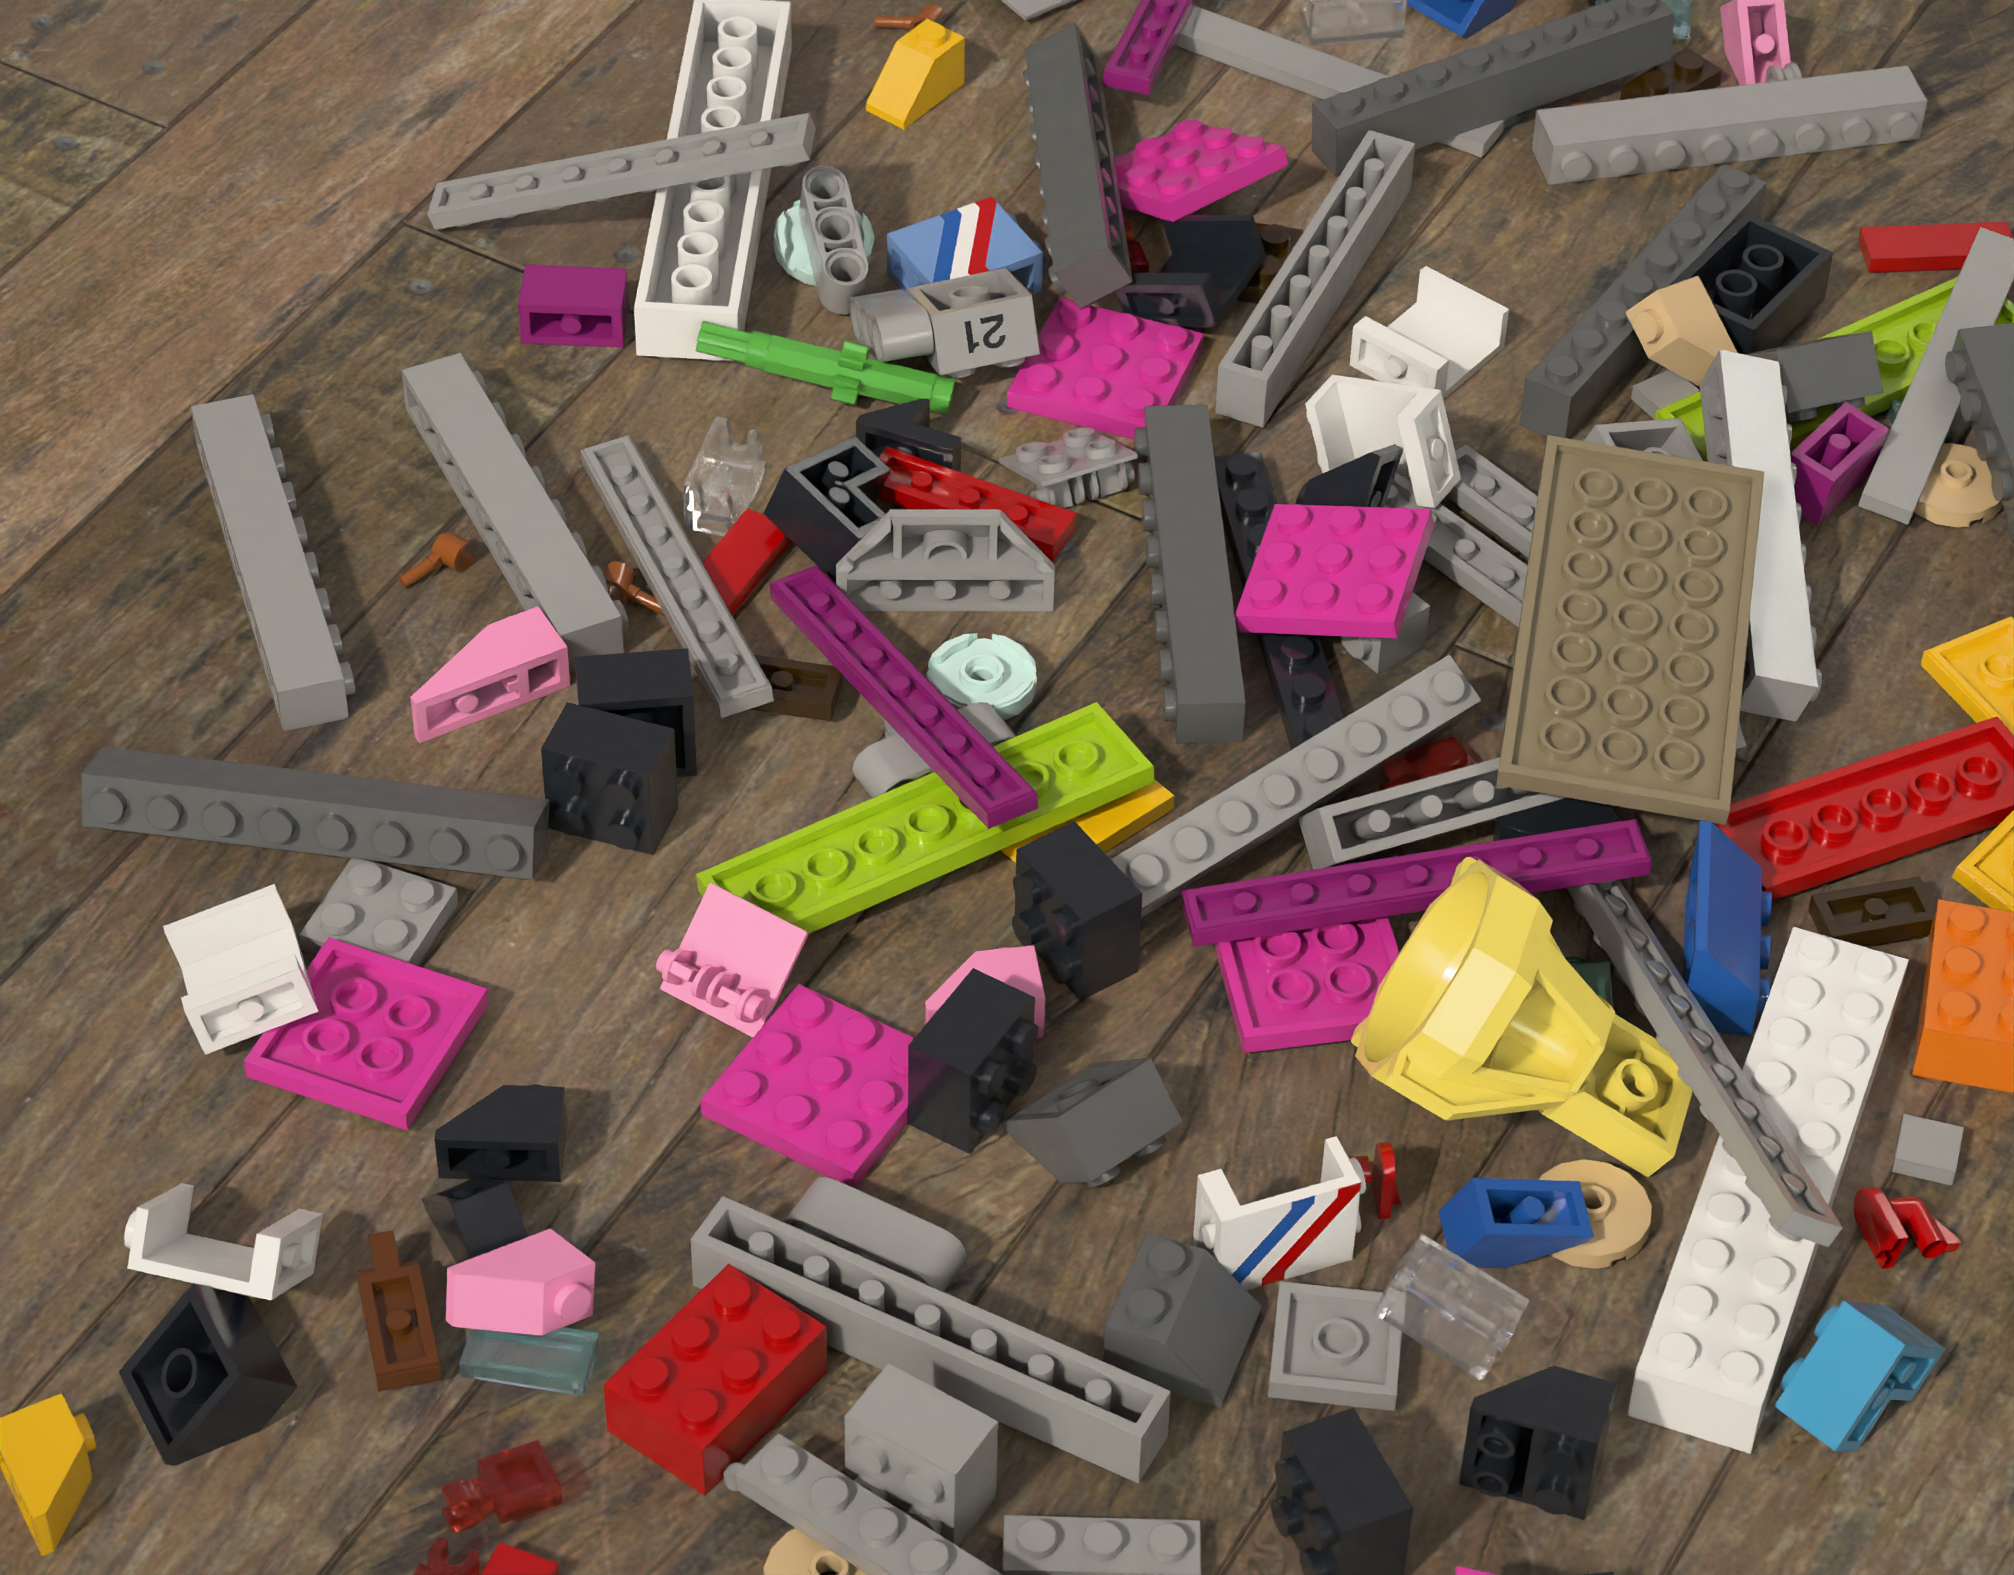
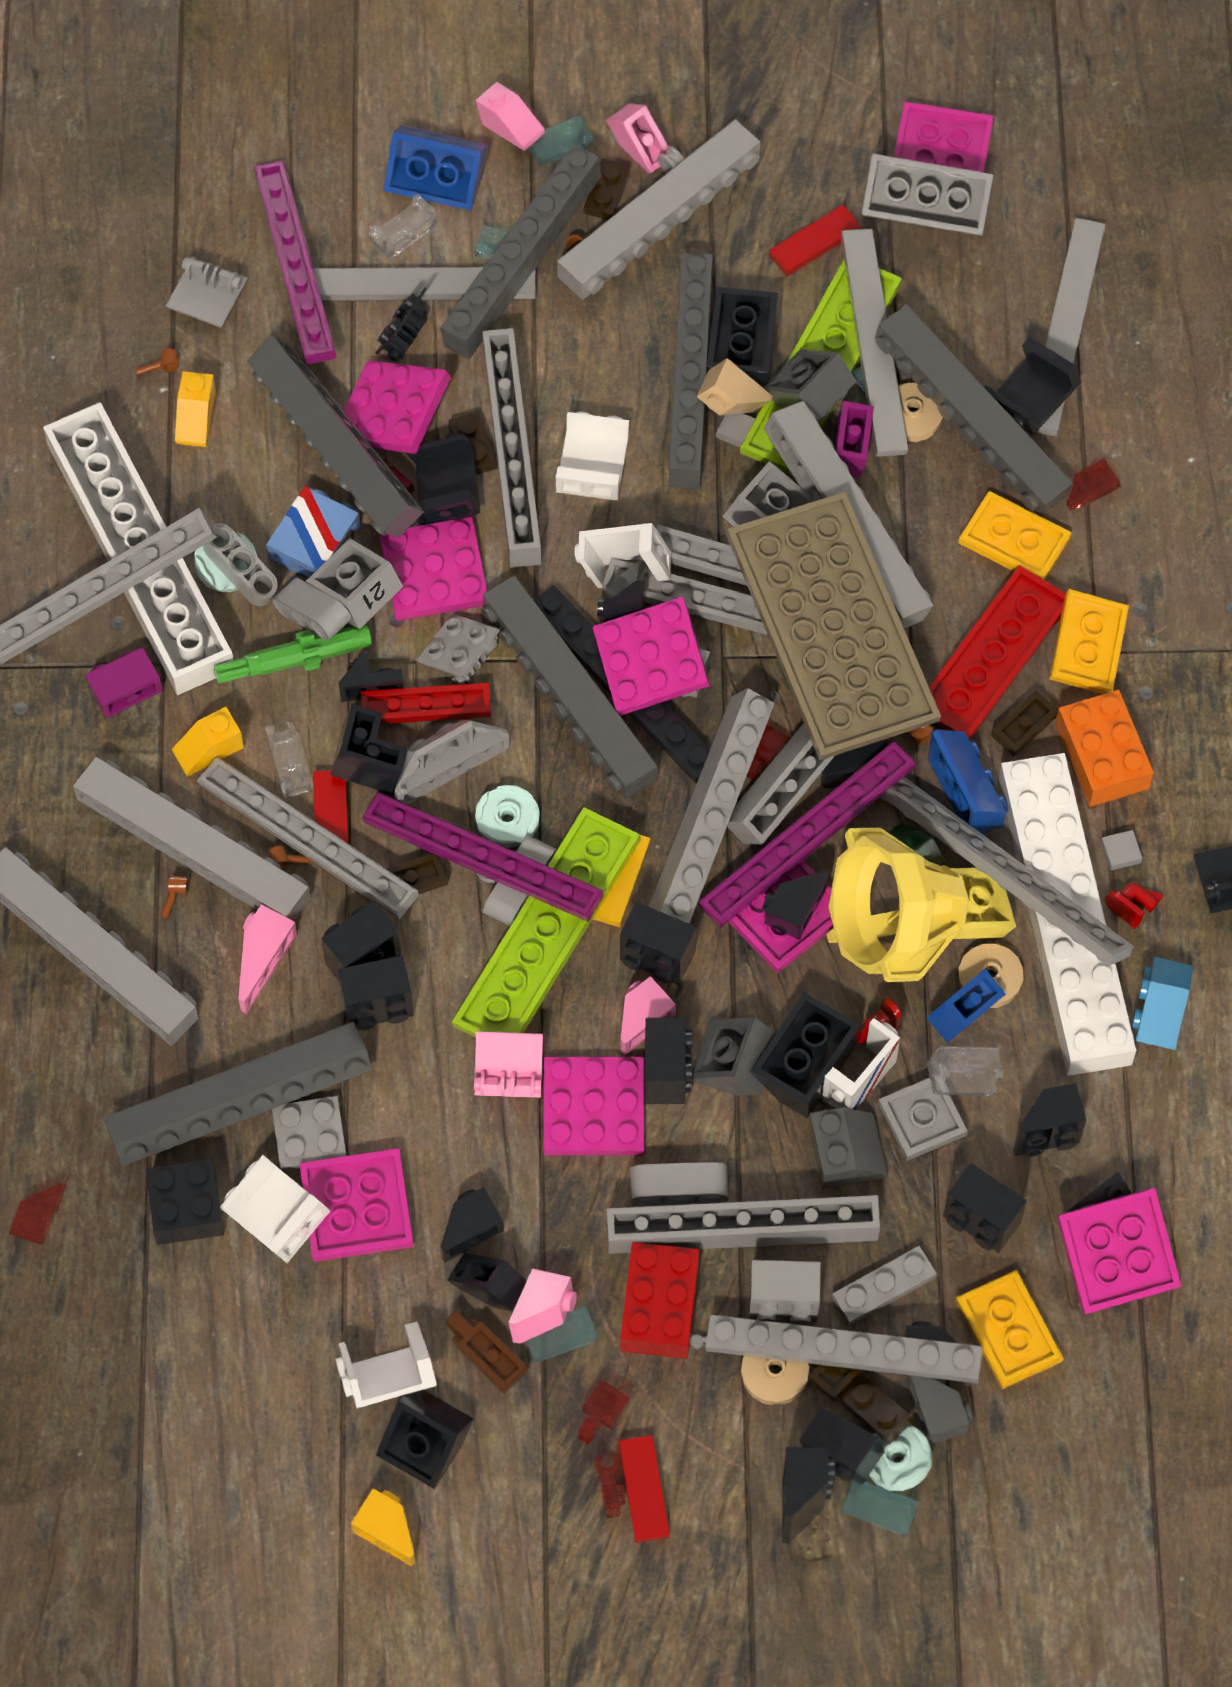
camera: 30 degrees left, 20 degrees up
(117, 901) = (184, 1201): none -> black brick
(637, 405) = (206, 740): none -> yellow slope
(1225, 1125) = (804, 1052): none -> black slope
(1269, 96) = (405, 326): none -> black hinge
(1331, 956) = (795, 903): none -> black slope
(1683, 843) = (921, 735): none -> dark orange hand

